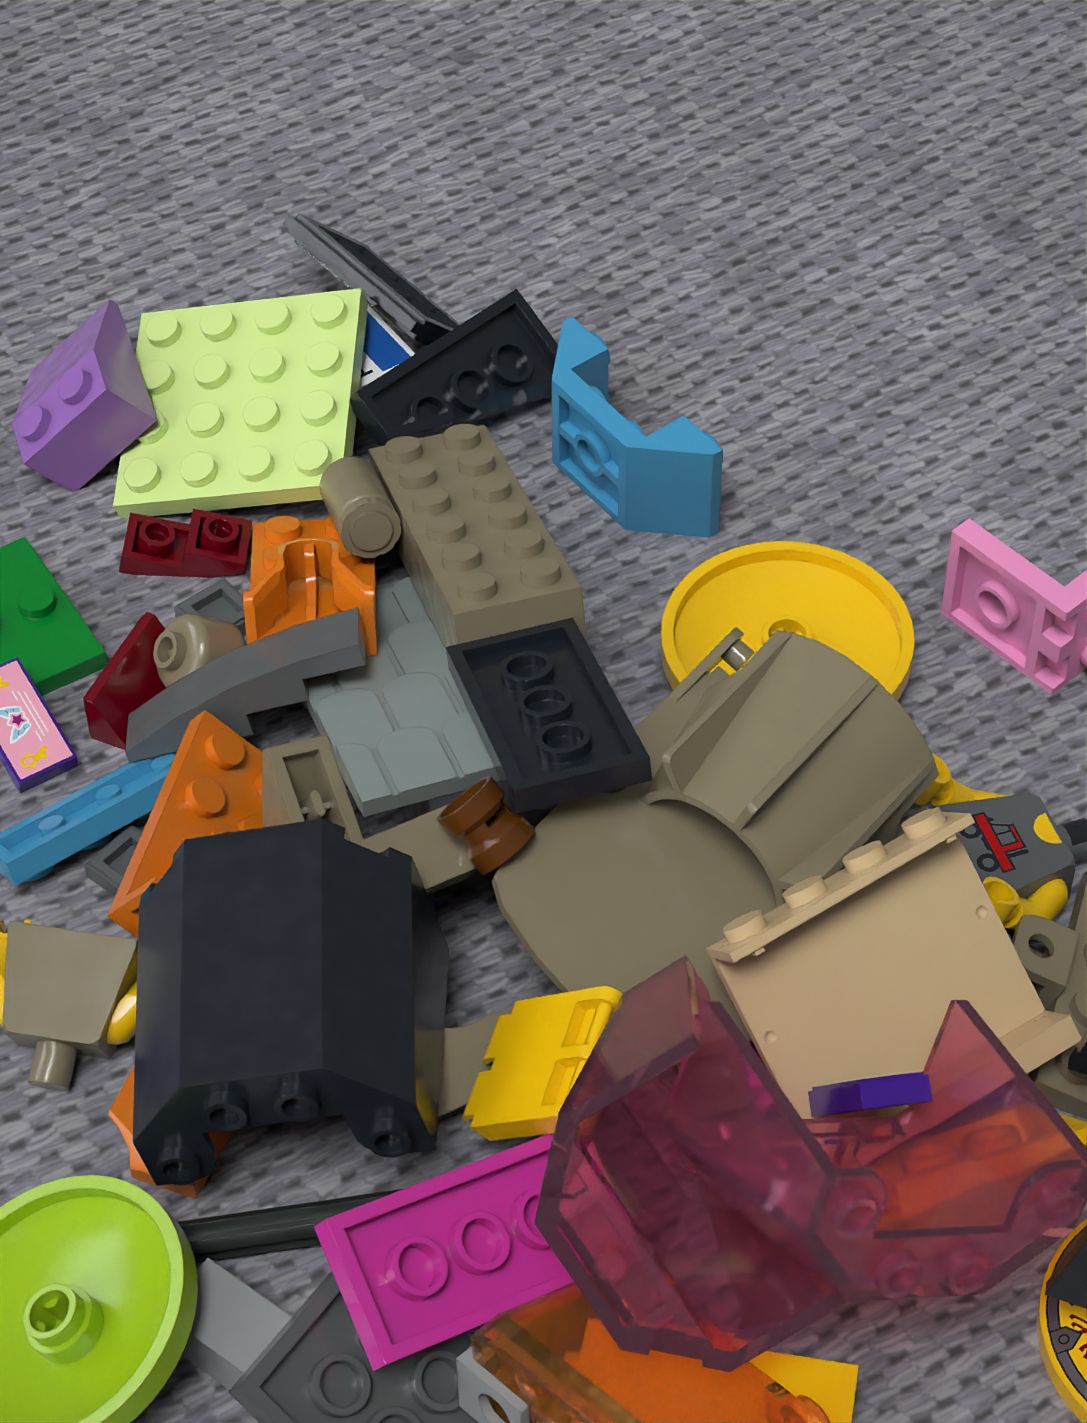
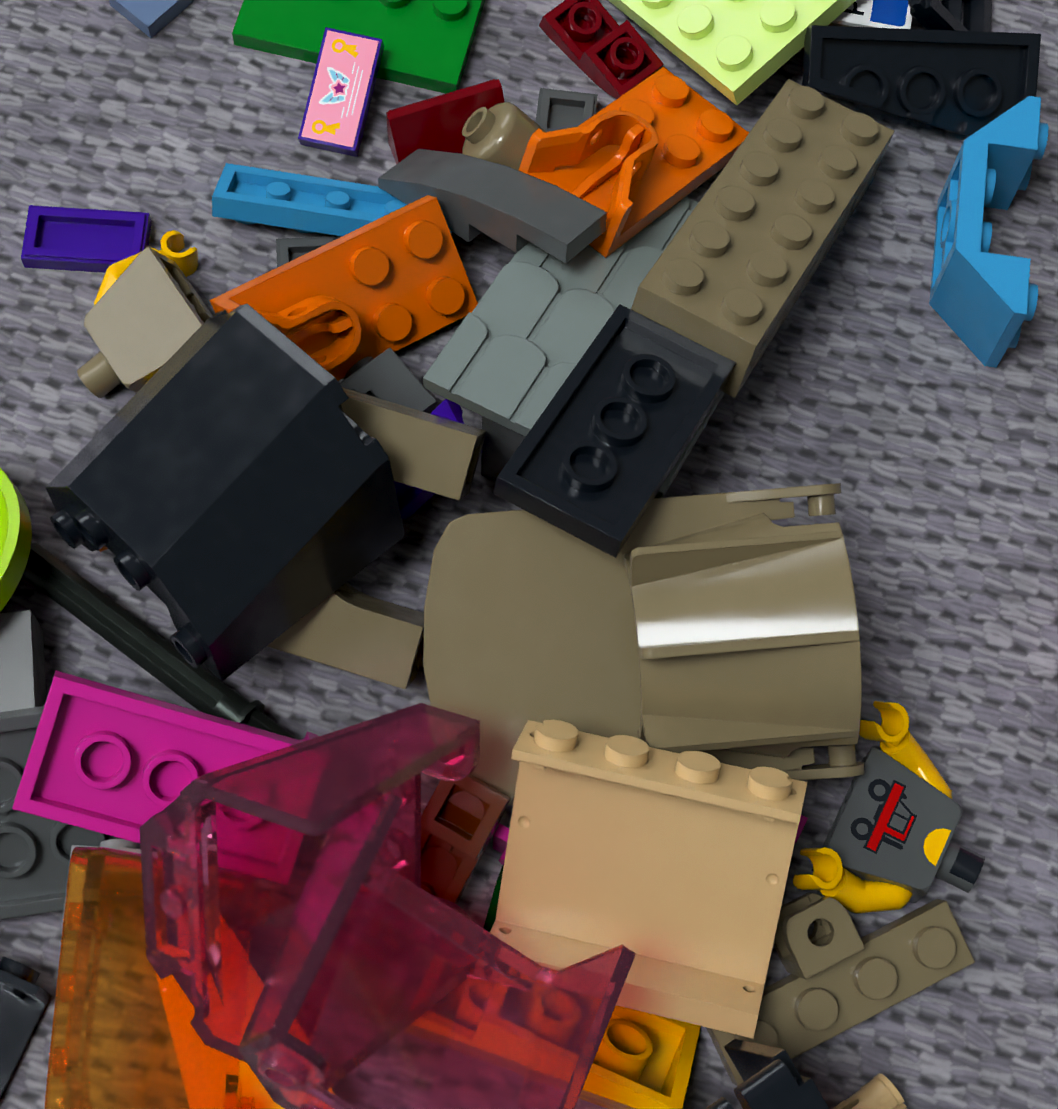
camera: 40 degrees right, 20 degrees up
(305, 785) = (417, 338): dark tan slope -> none
(360, 507) = (721, 123): dark tan piece -> none
(486, 825) = (473, 476): reddish brown wheel -> none
(536, 1061) = (349, 686): yellow plate -> none
(794, 591) = (934, 509): yellow dish -> none
(870, 1094) = (537, 936): dark purple tile -> none

